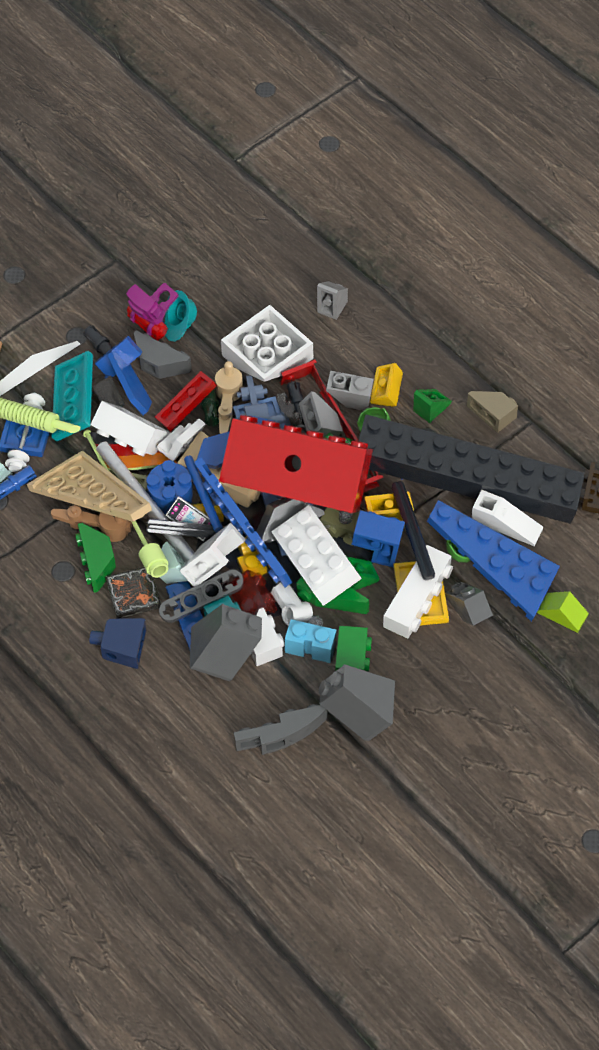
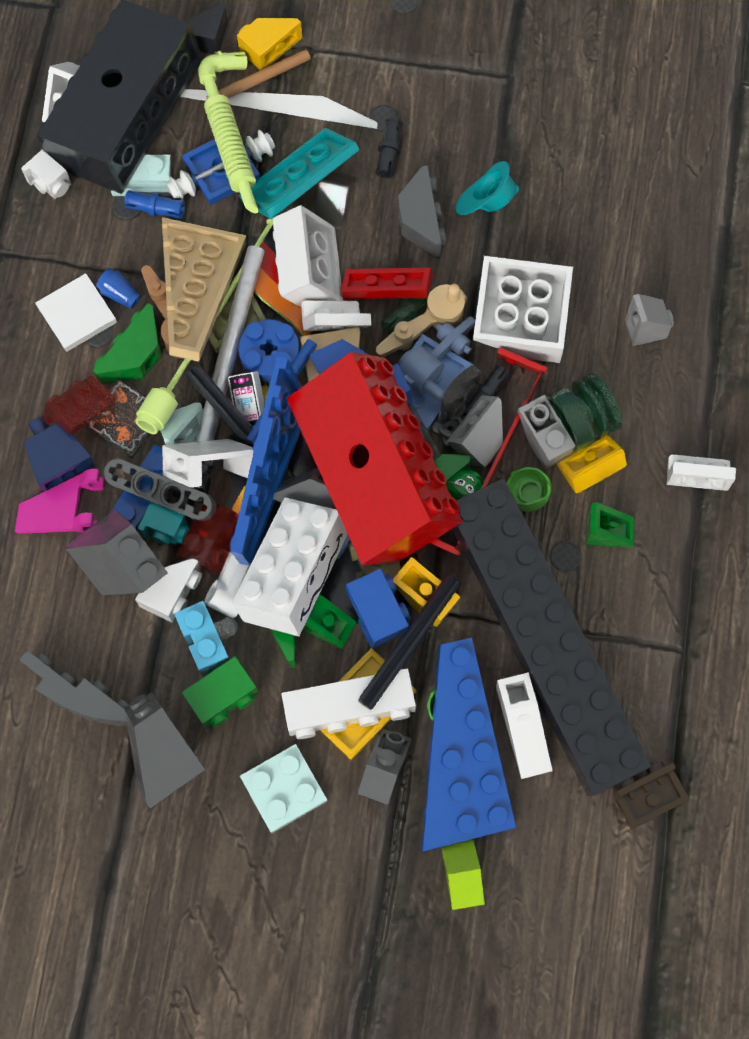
camera: 50 degrees right, 15 degrees up
(39, 572) = (76, 312): none -> white tile
(48, 538) = (116, 287): none -> blue cone
(105, 603) = (78, 405): none -> clear red bracket
(118, 362) = (363, 207): blue piece -> none
(147, 312) = (462, 156): magenta piece -> none
(155, 663) = (58, 507): none -> dark pink flag
(358, 356) = (586, 410): none -> clear green wheel
(435, 665) = (283, 788): none -> light aqua plate
(441, 338) = (700, 472): none -> white bracket
(493, 408) = (659, 599): dark tan slope -> none

